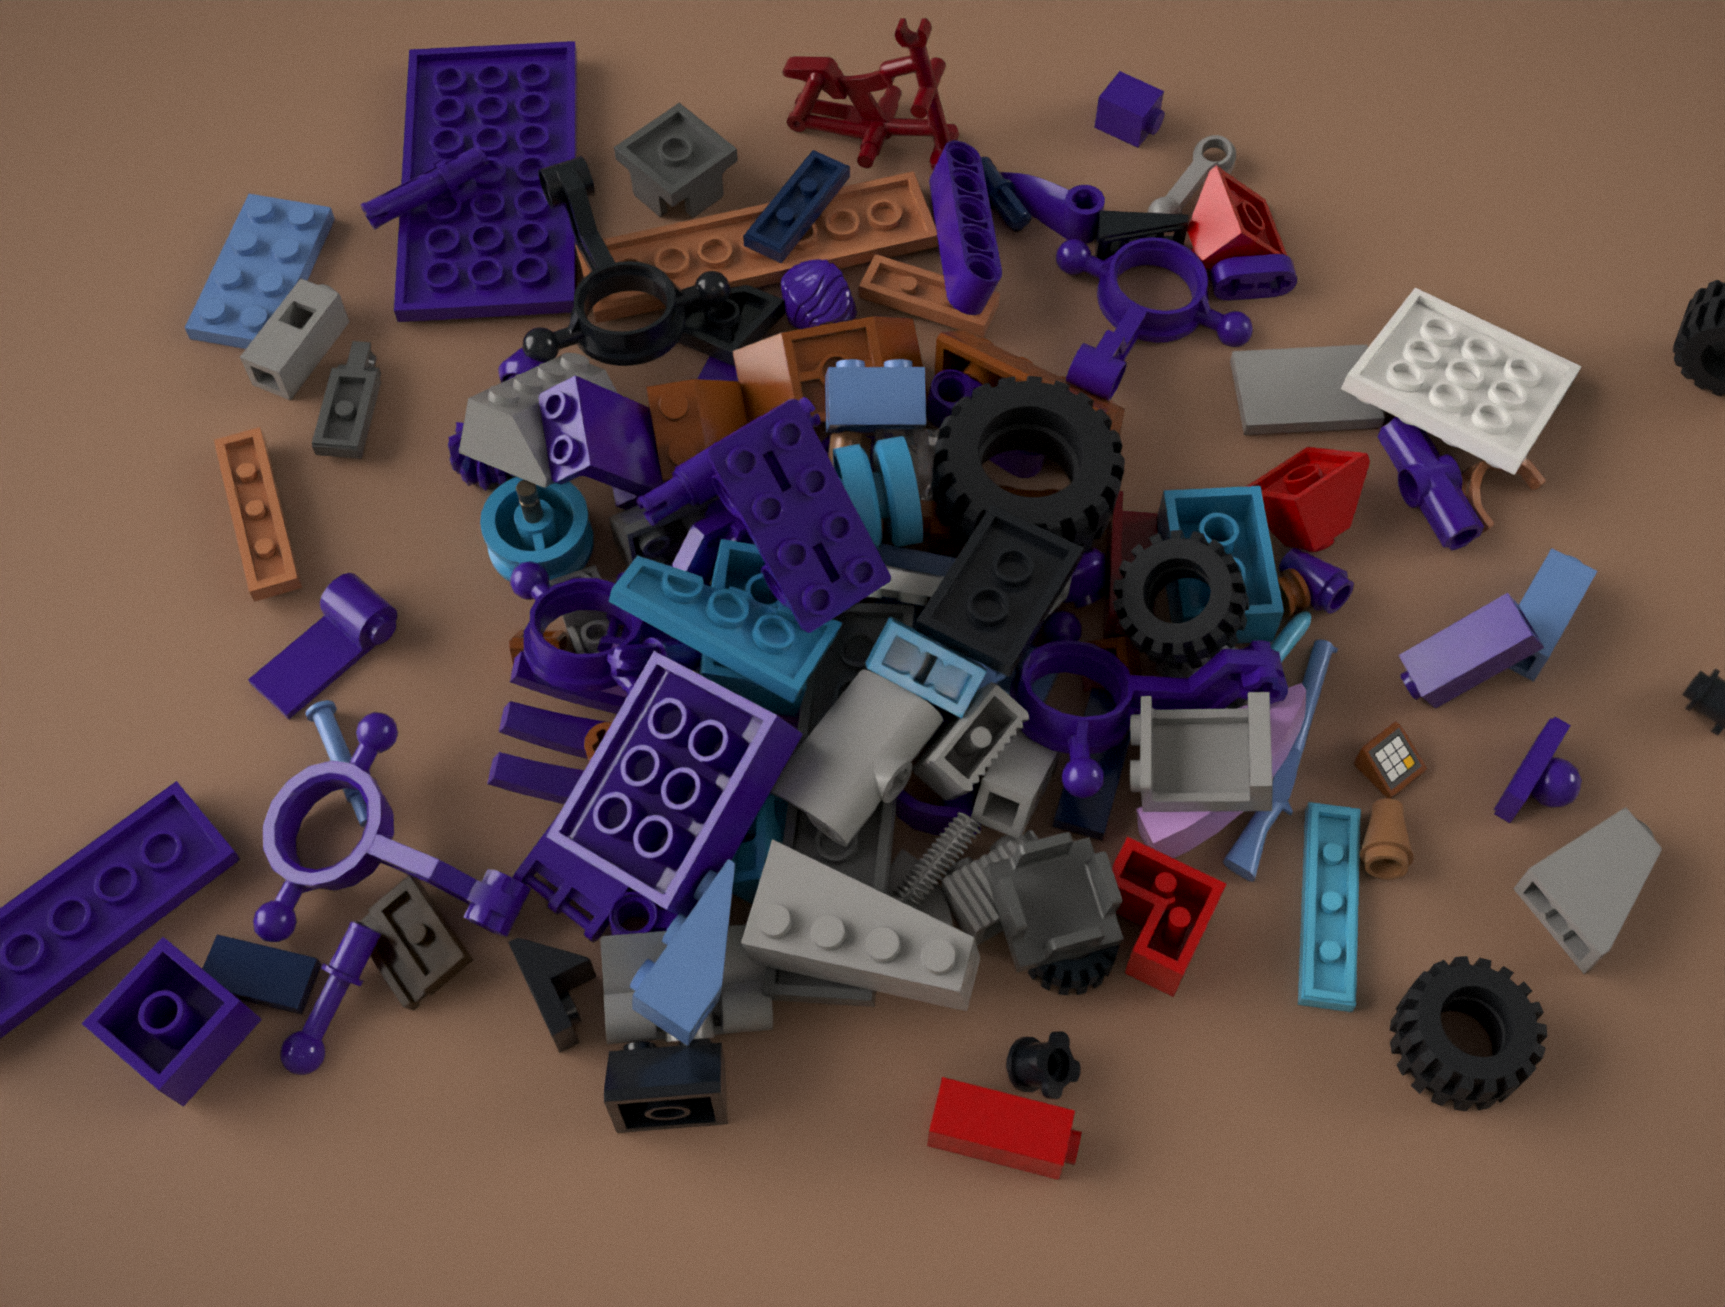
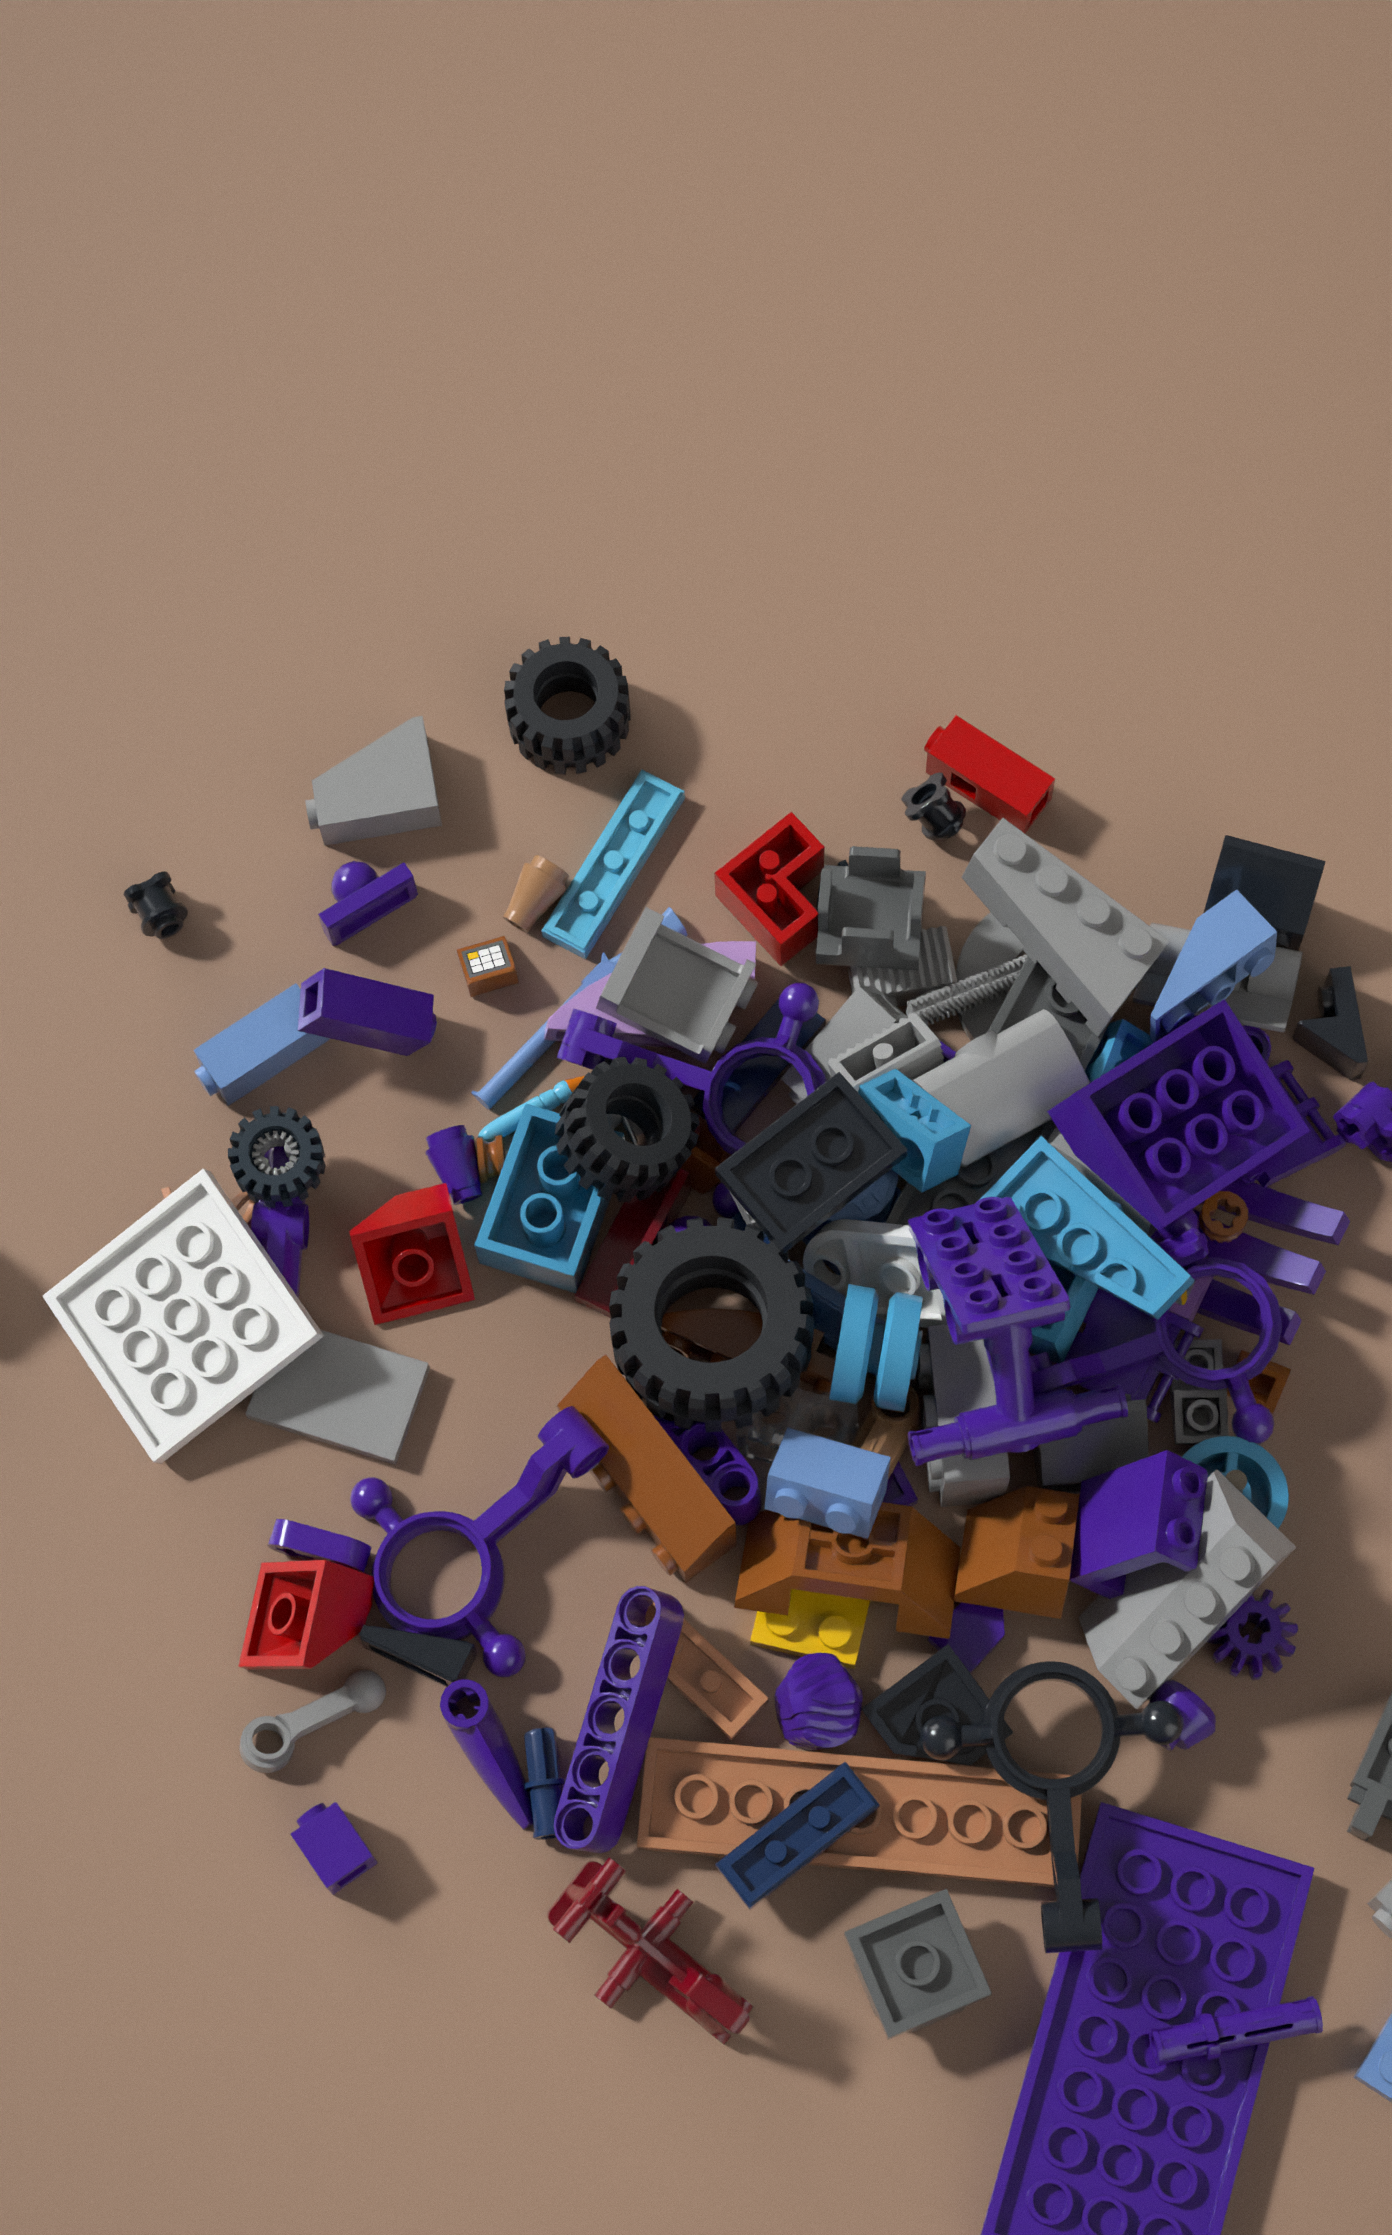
camera: 155 degrees left, 10 degrees up
(1479, 485) = (300, 1144): none -> black bush

